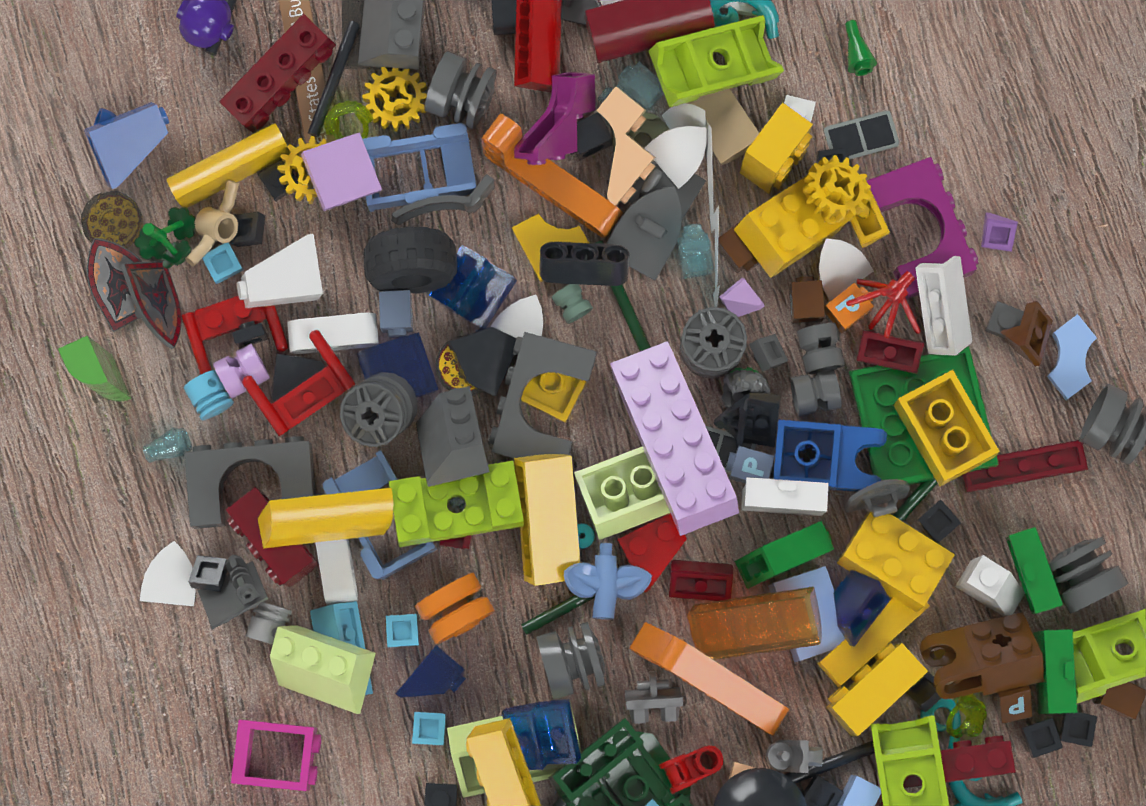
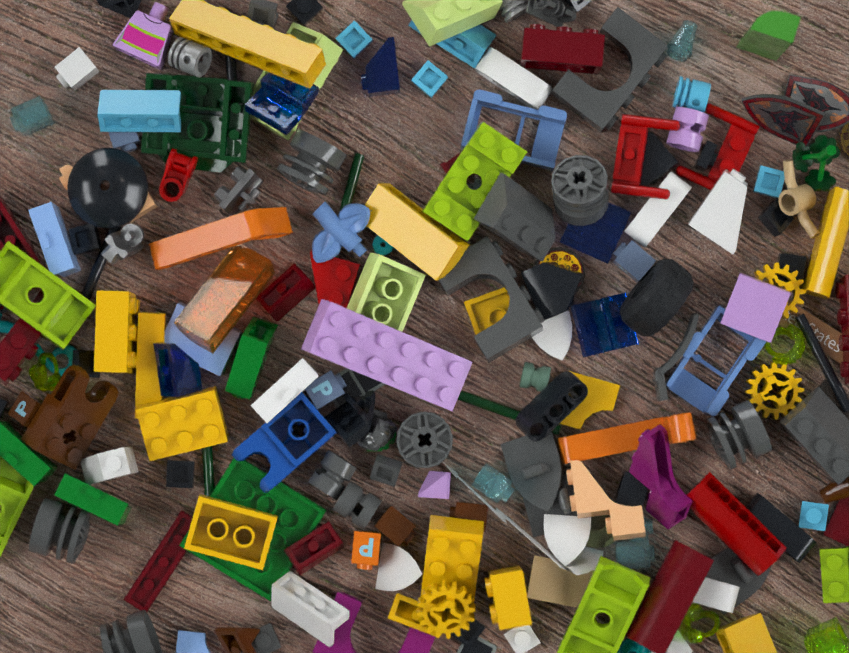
camera: 135 degrees right, 5 degrees up
(326, 517) = (540, 91): yellow brick -> none
(456, 612) = (407, 120): orange wheel -> none
(879, 493) = (230, 451): dark grey shield -> none
(896, 294) = (348, 581): red plant -> none

